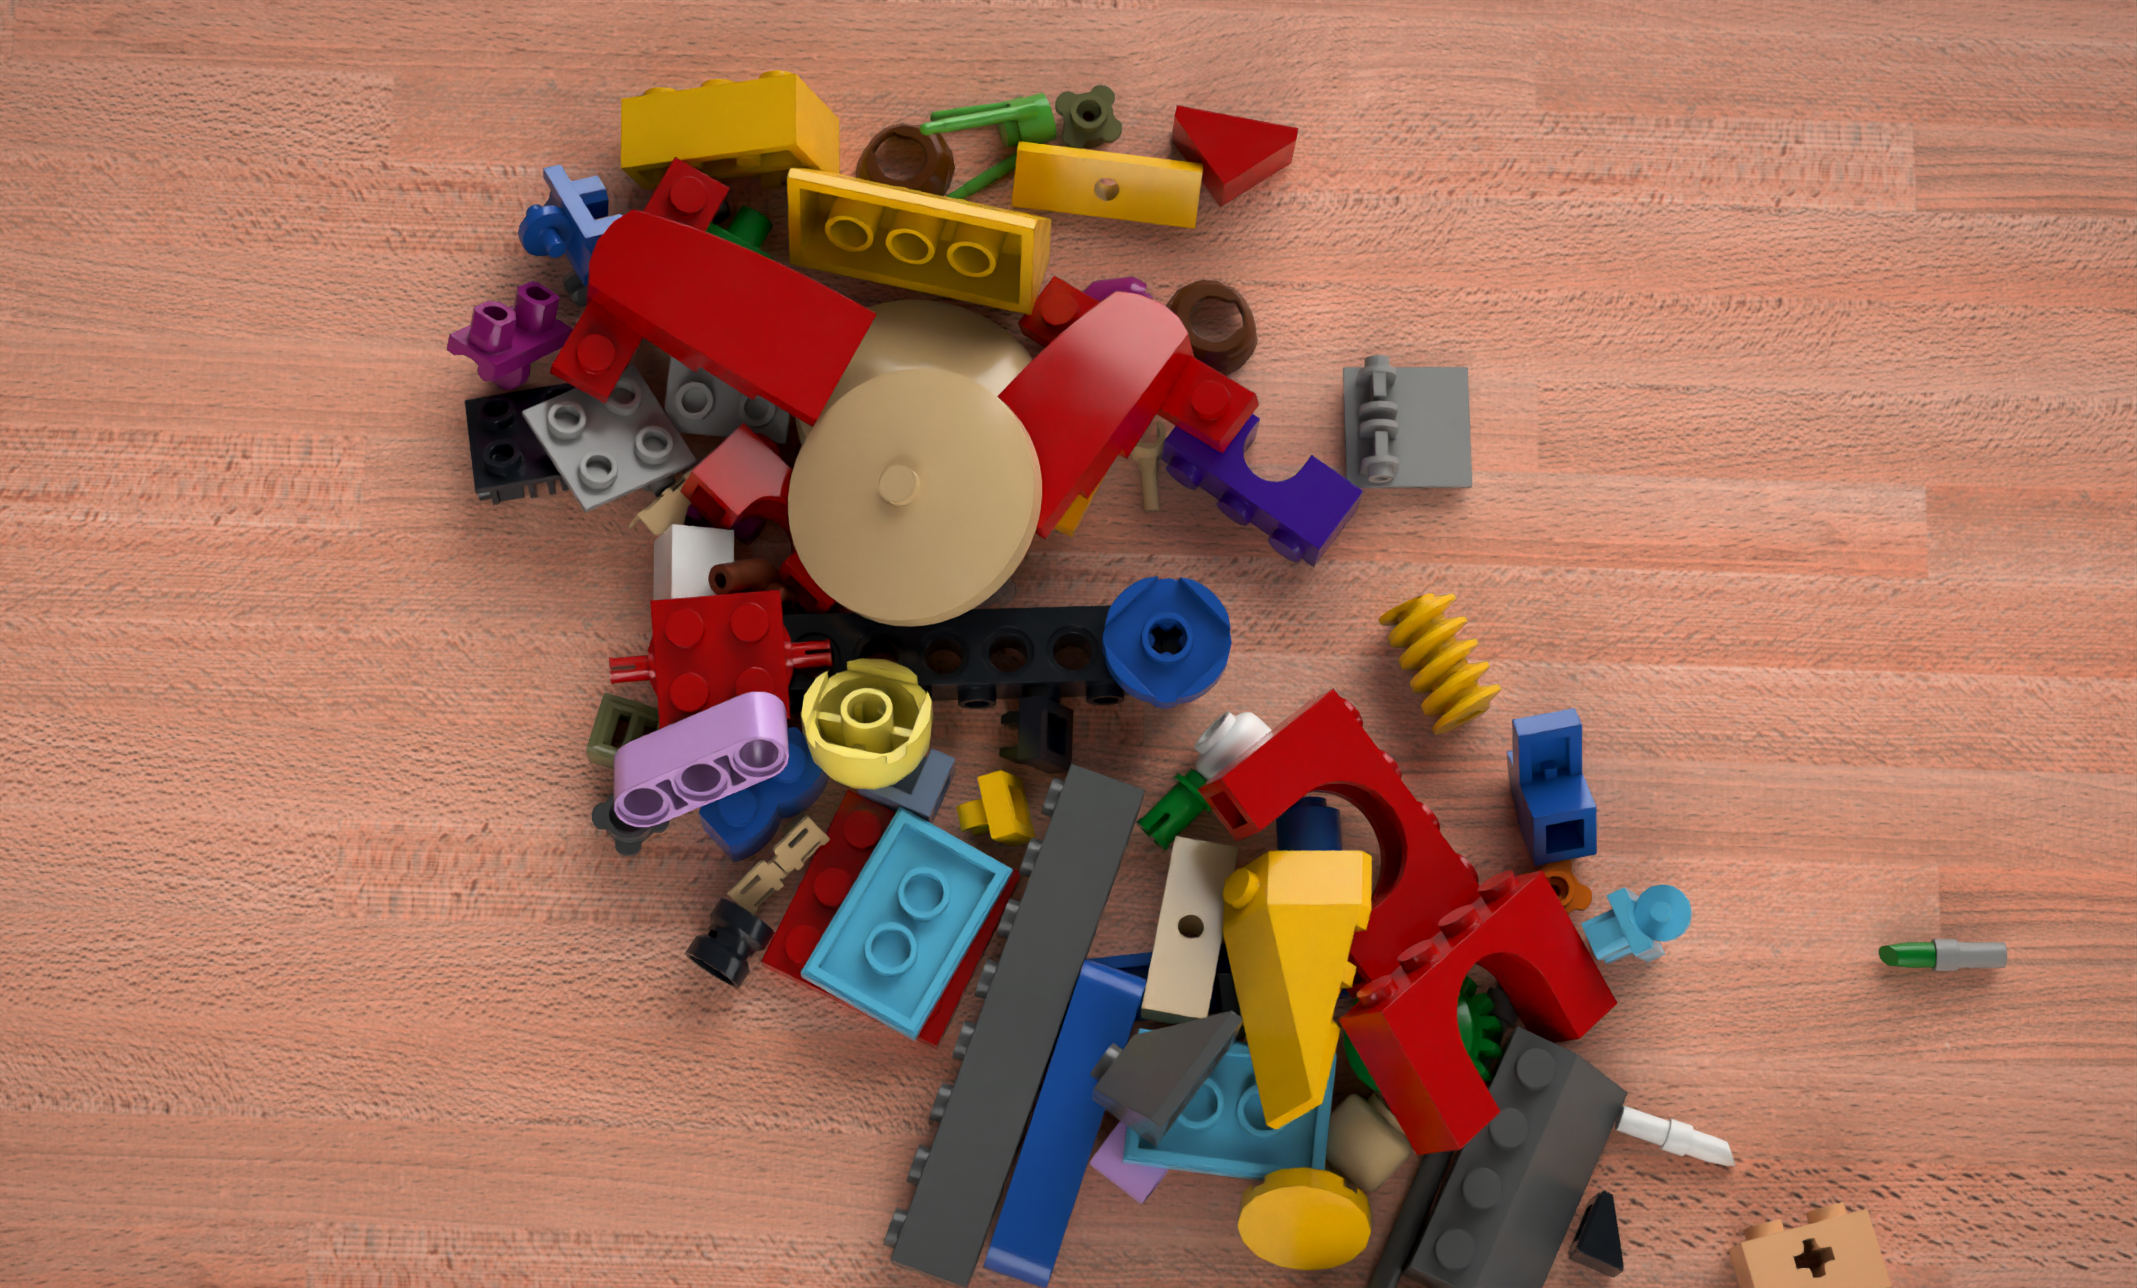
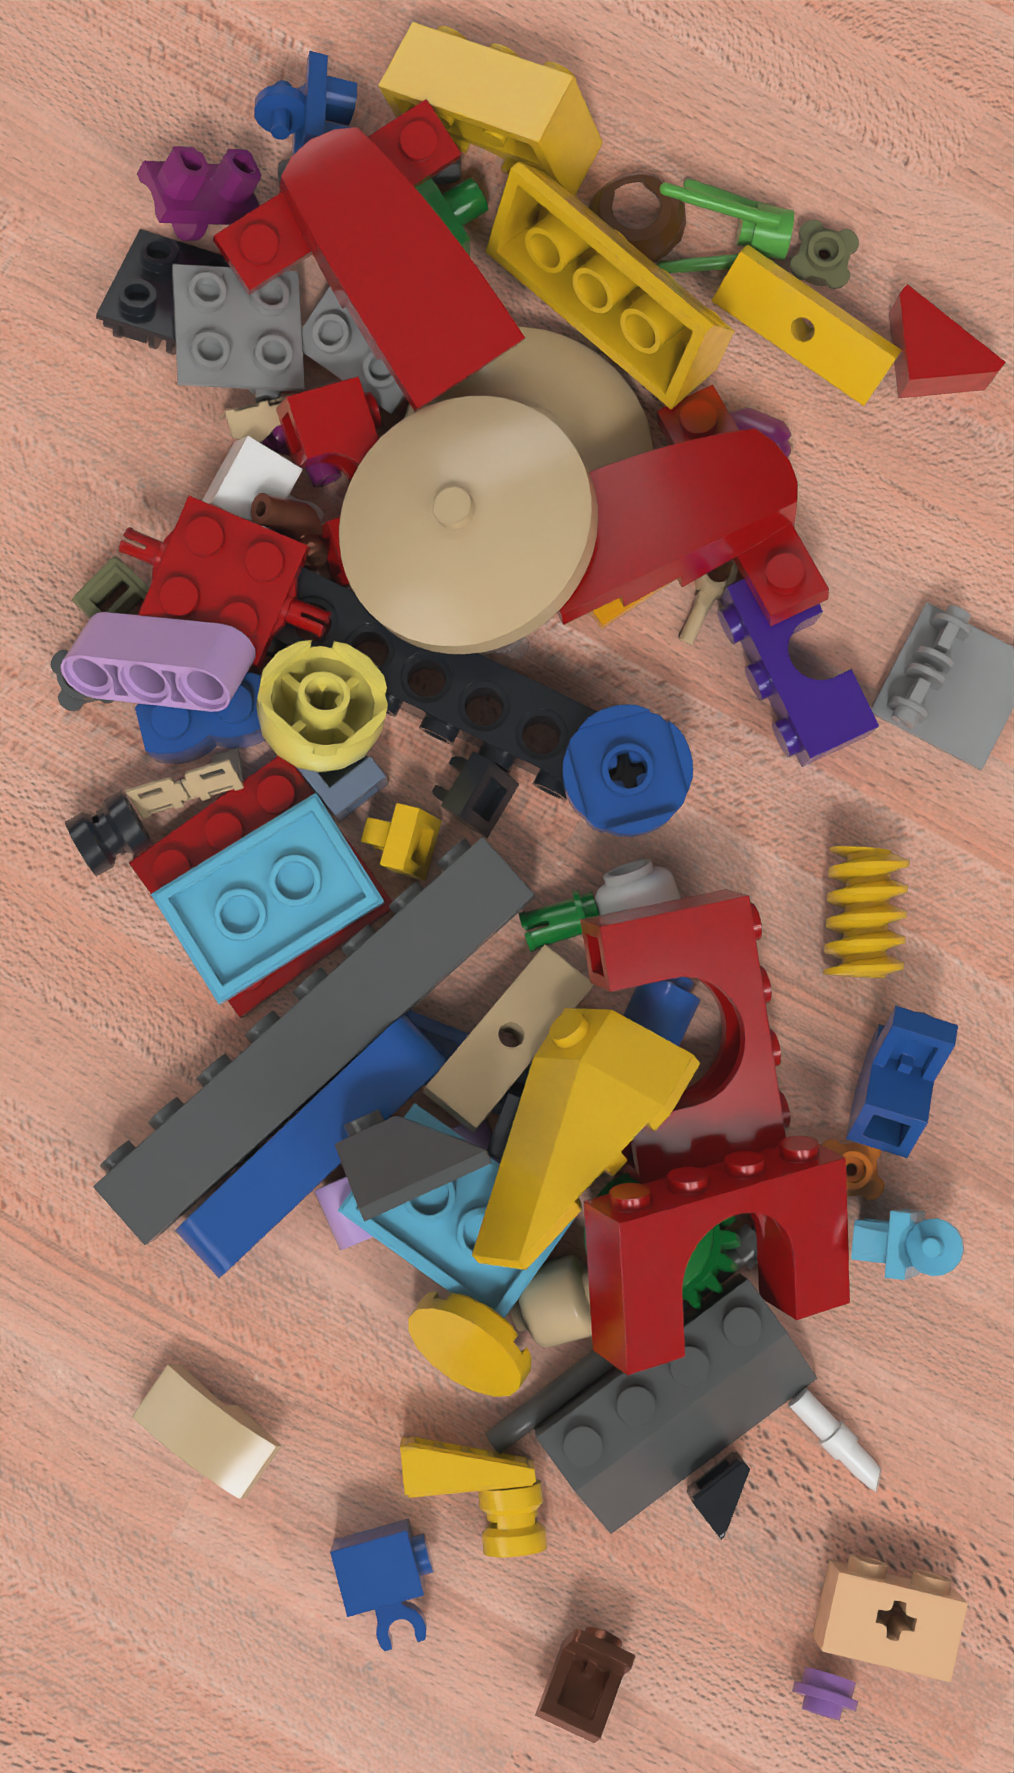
camera: 25 degrees right, 10 degrees up
(1223, 355) = (817, 533): reddish brown piece -> none

